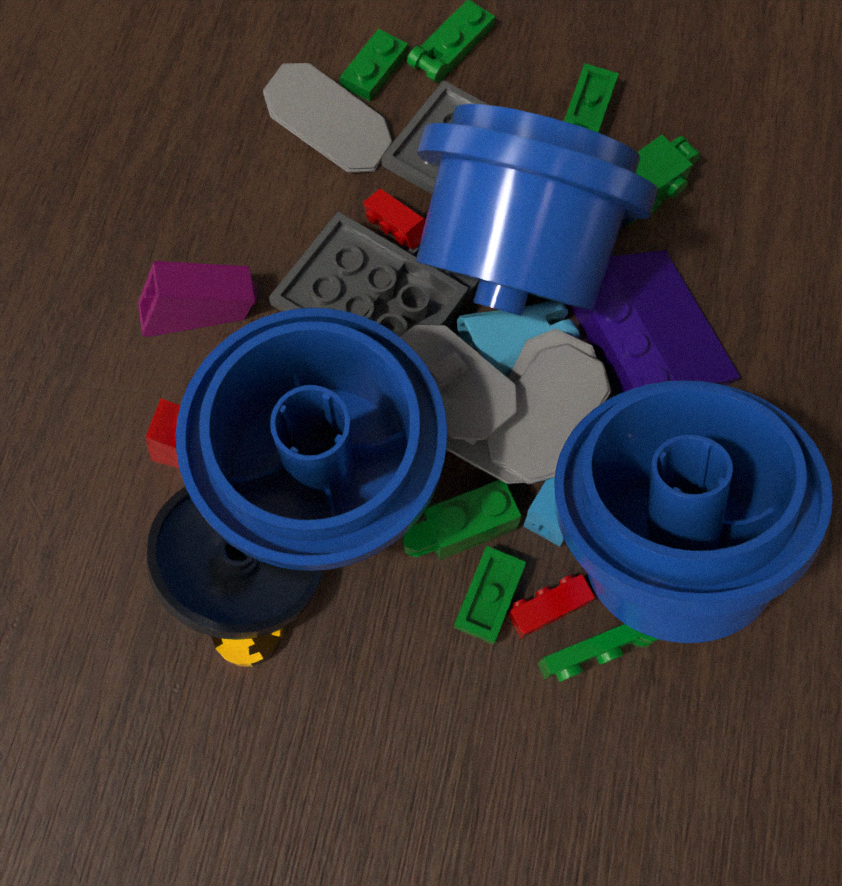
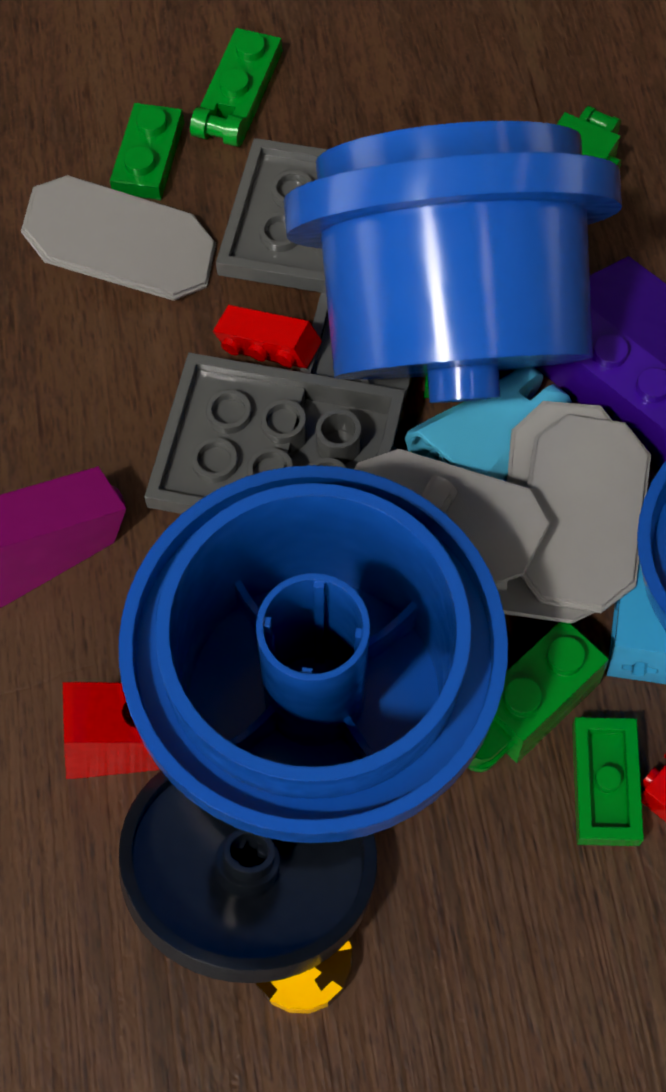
camera: 15 degrees left, 5 degrees down
(591, 97) = (450, 90): green plate -> none

